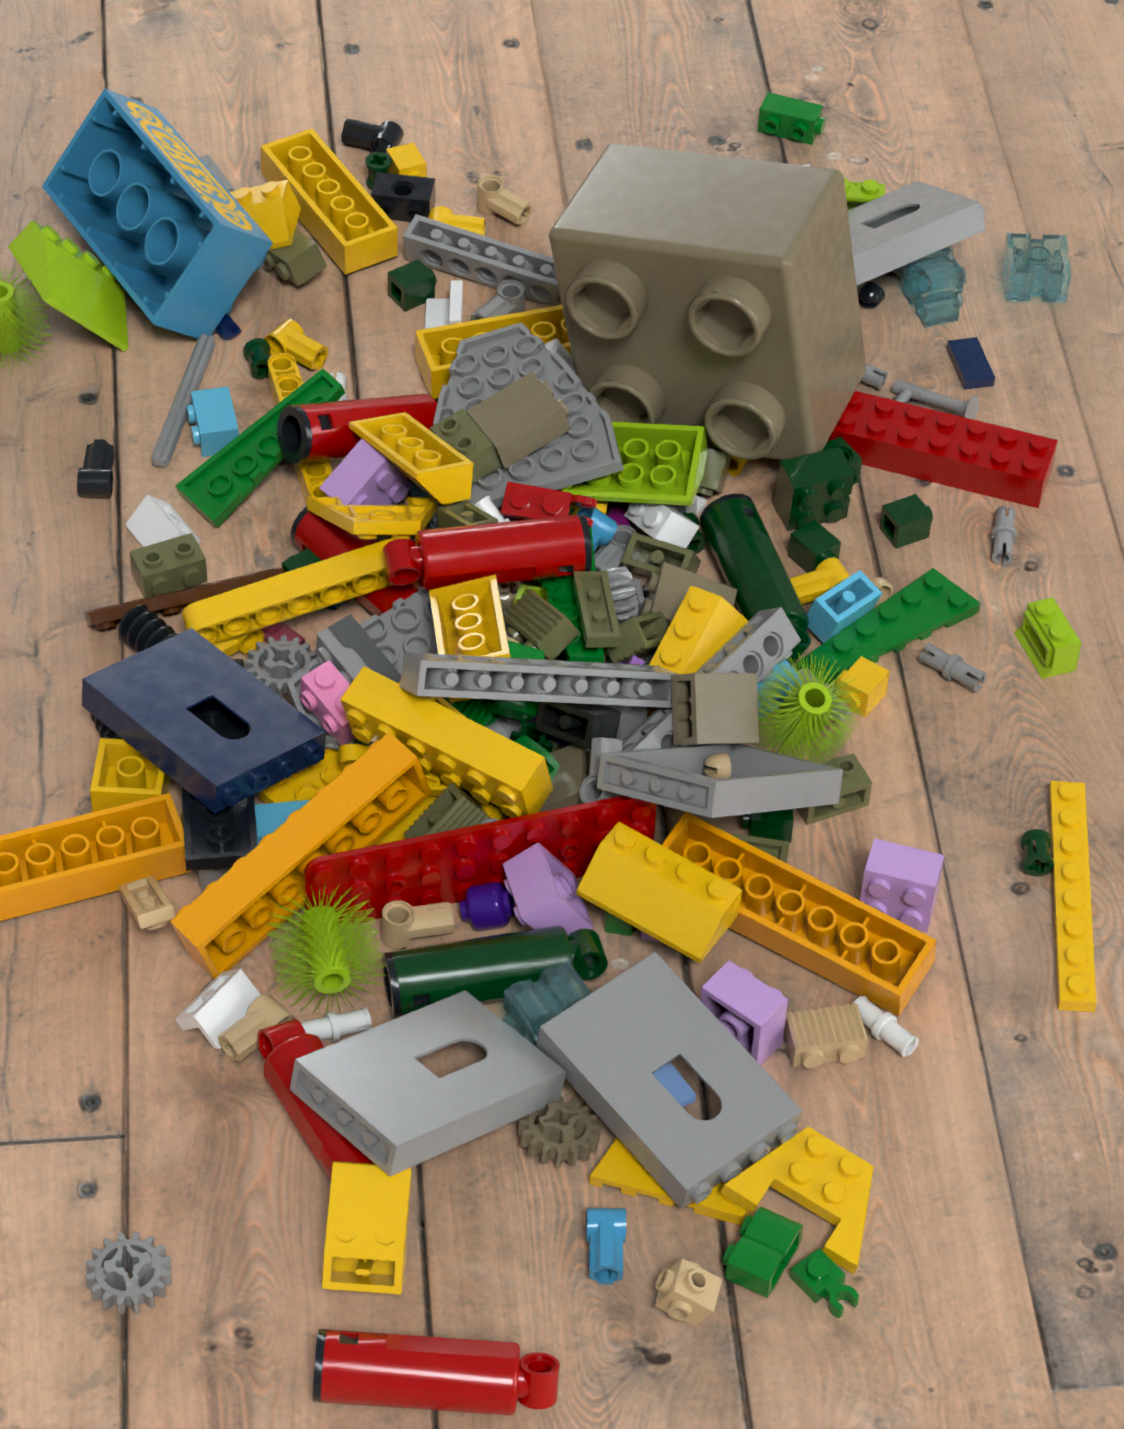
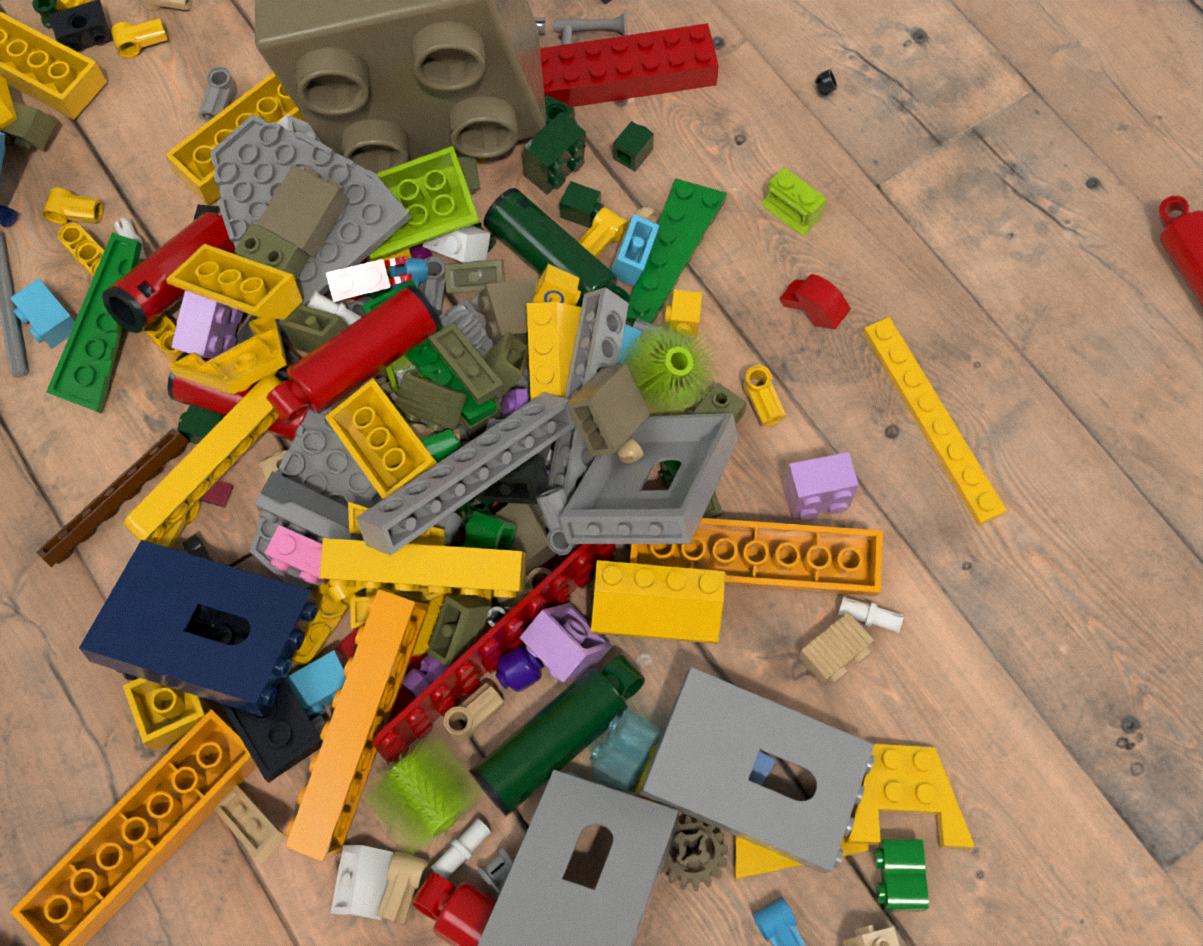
camera: 25 degrees left, 20 degrees up
(143, 628) = (104, 551): black piece -> none
(157, 522) = (57, 438): white panel -> none
(168, 566) = (83, 474): olive brick -> none
(260, 358) = (45, 231): dark green bush -> none
(280, 662) = (225, 513): light grey gear -> none
(411, 285) = (134, 106): dark green brick -> none
(445, 311) = (174, 119): white panel -> none
(481, 258) = (182, 57): light grey brick -> none
(738, 592) = (557, 286): none -> yellow brick
(747, 1009) = (774, 669): lavender brick -> none
(823, 1279) = (952, 872): green plate -> none
(896, 790) = (763, 397): none -> yellow piece
(953, 667) = (739, 260): light grey pin -> none
(1003, 535) = (708, 123): light grey pin -> none
(1013, 732) = (819, 299): none -> red brick
(1037, 852) = (893, 407): dark green bush -> none

